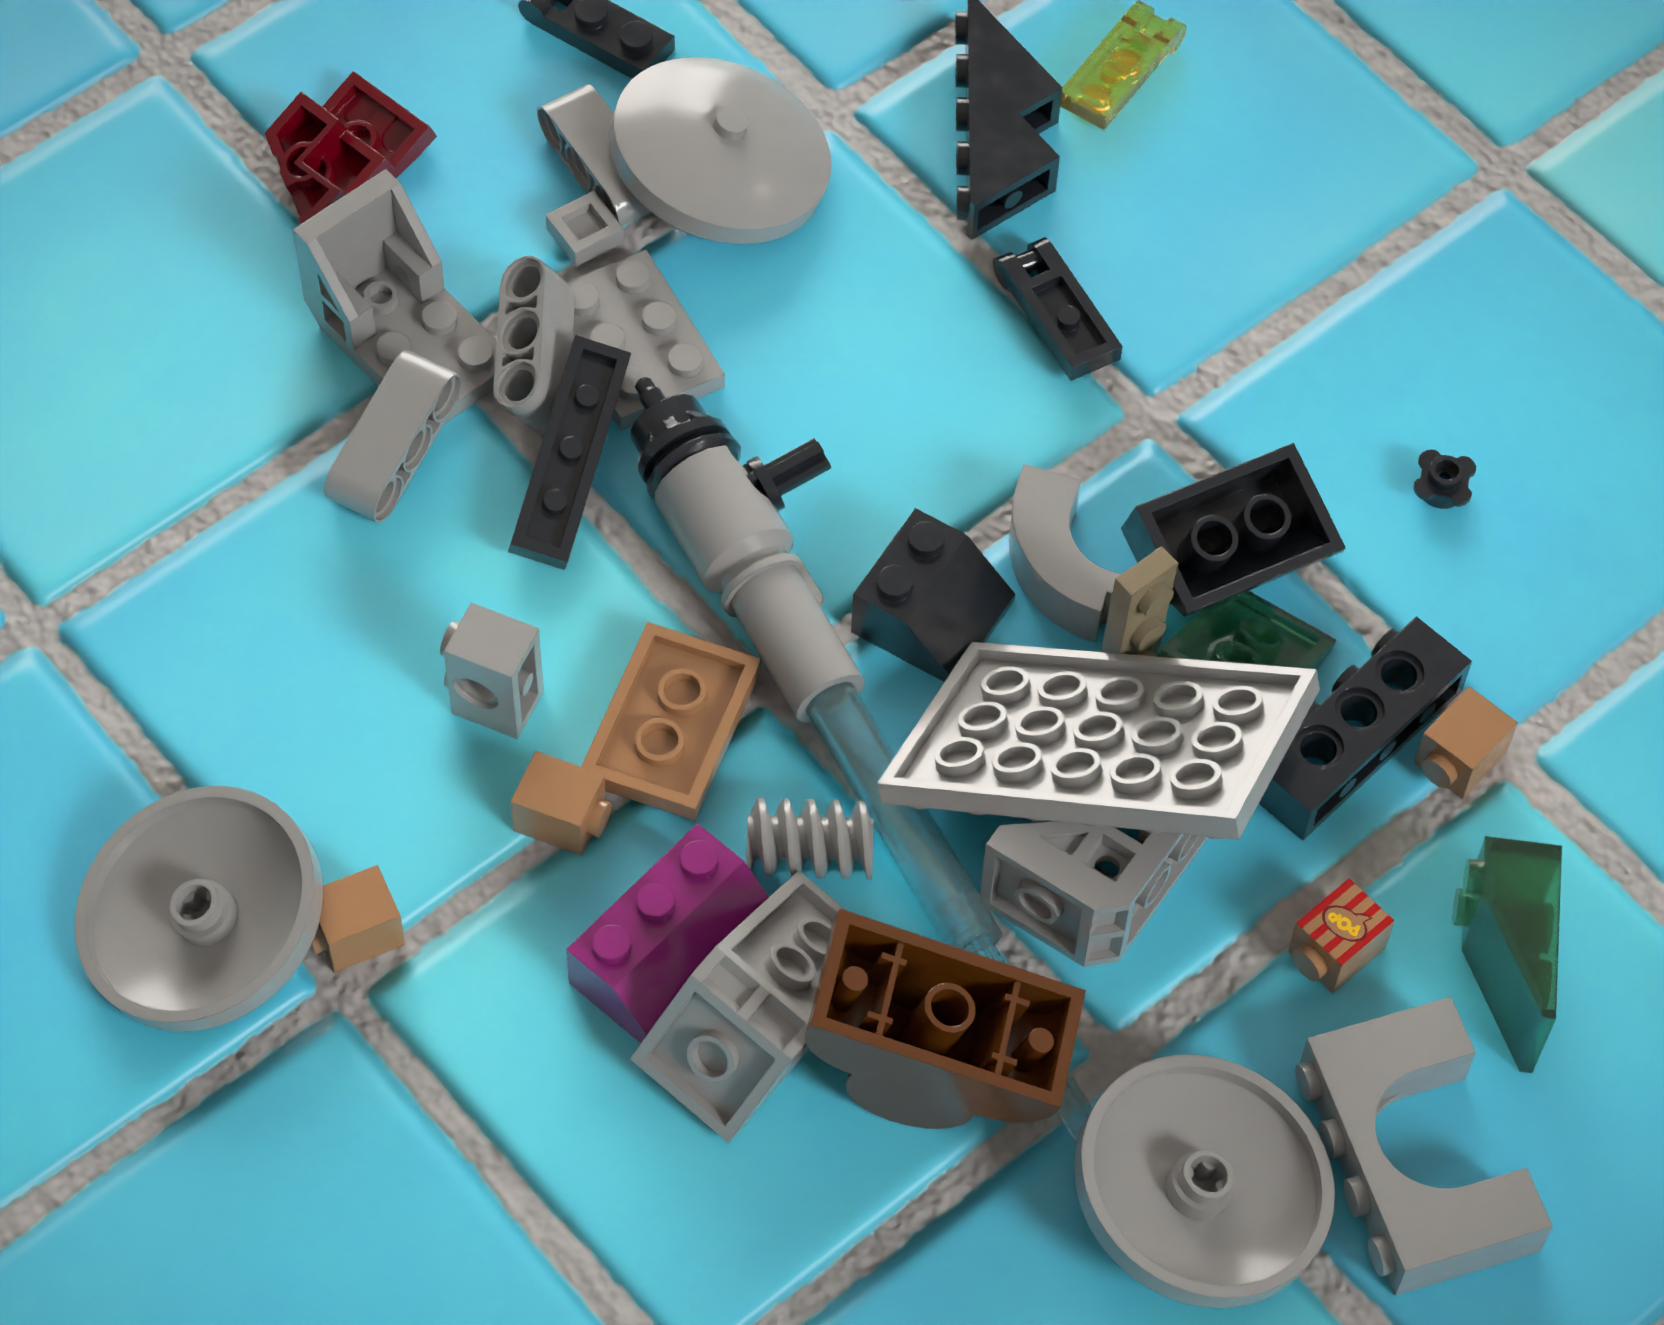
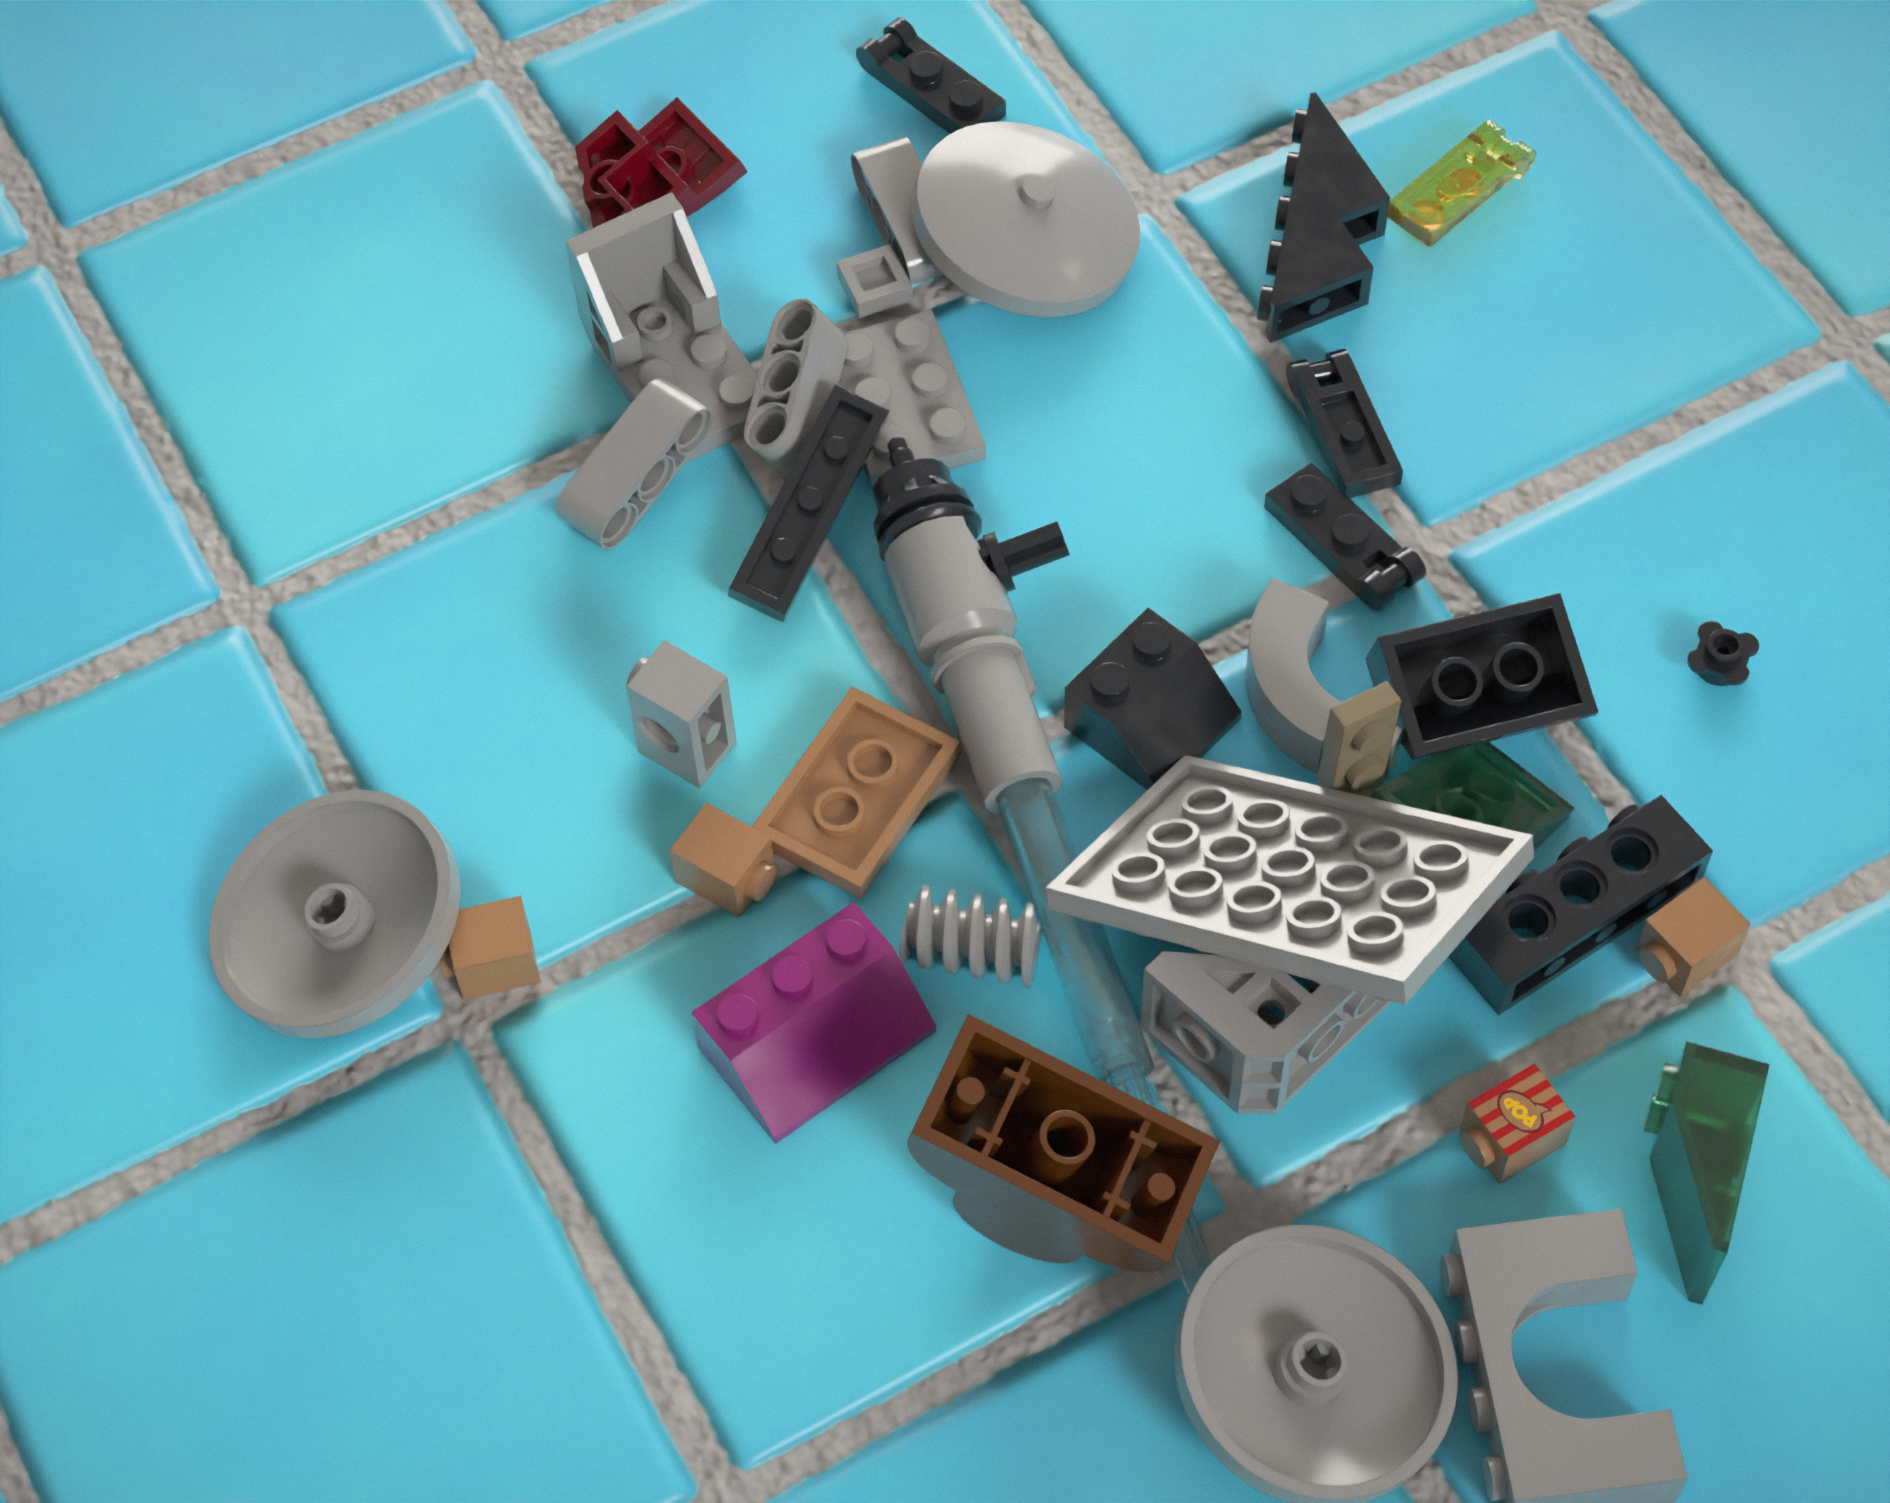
camera: 15 degrees right, 0 degrees up
(744, 1010) = (846, 1112): light grey bracket -> none
(1077, 416) = (1343, 537): none -> black plate

